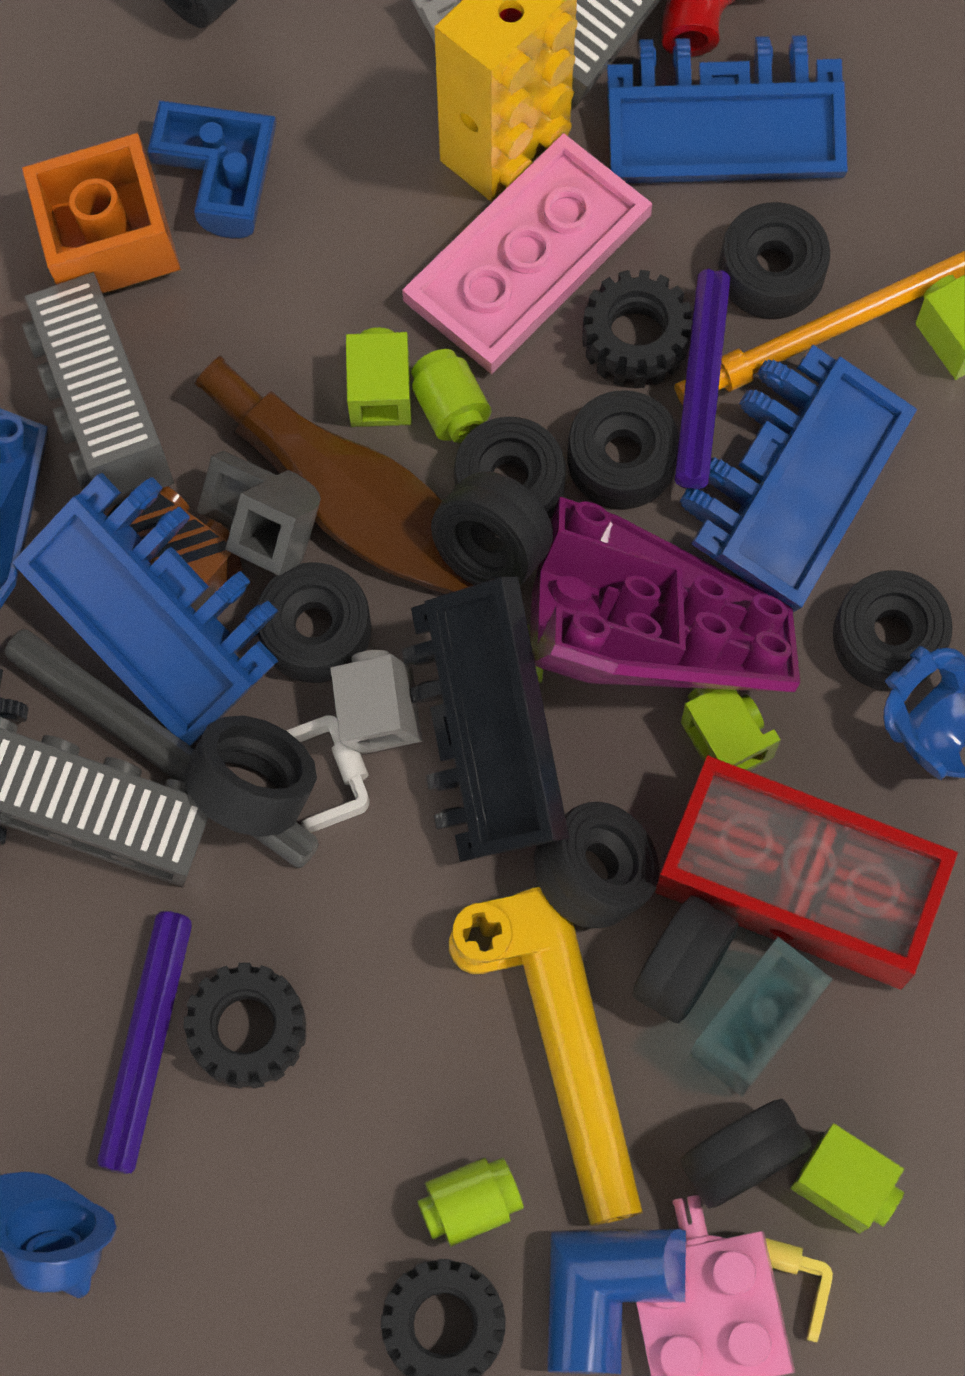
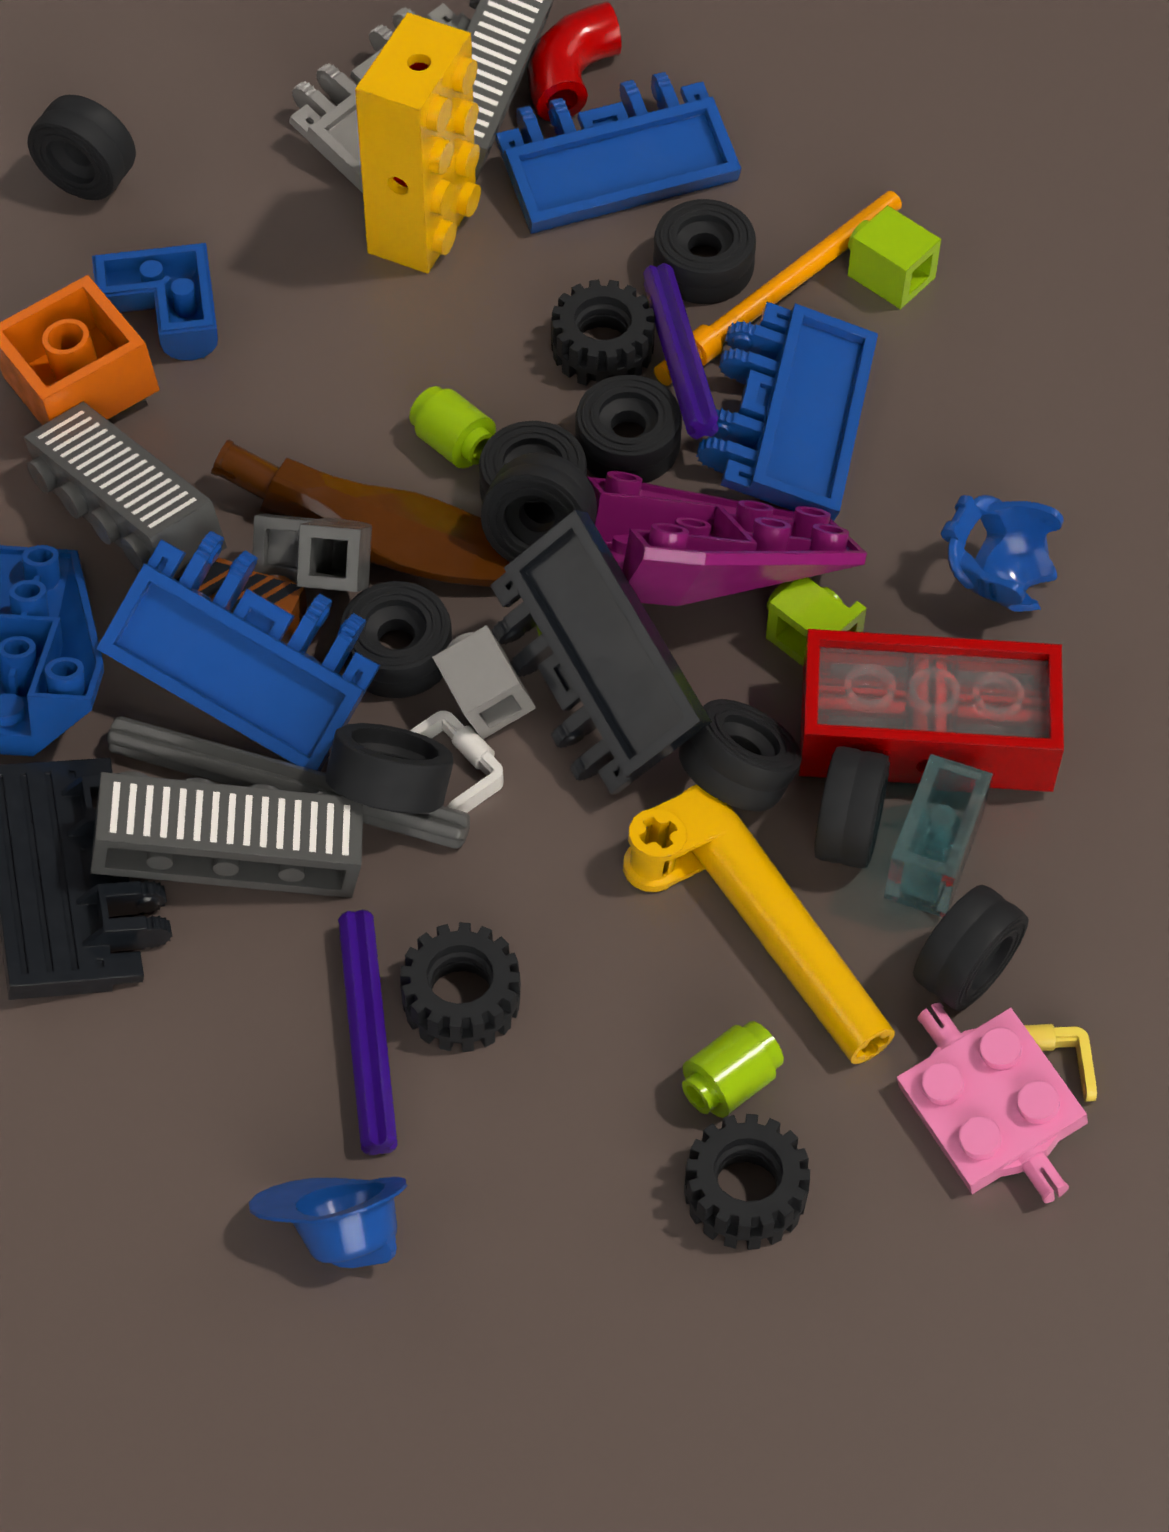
camera: 20 degrees left, 15 degrees down
(378, 378) = (382, 428): lime brick -> none
(527, 253) = (478, 299): bright pink plate -> none
(591, 1280) = (872, 1100): blue brick -> none
(850, 1180) = (1071, 950): lime brick -> none
(883, 595) = (917, 479): black tyre -> none

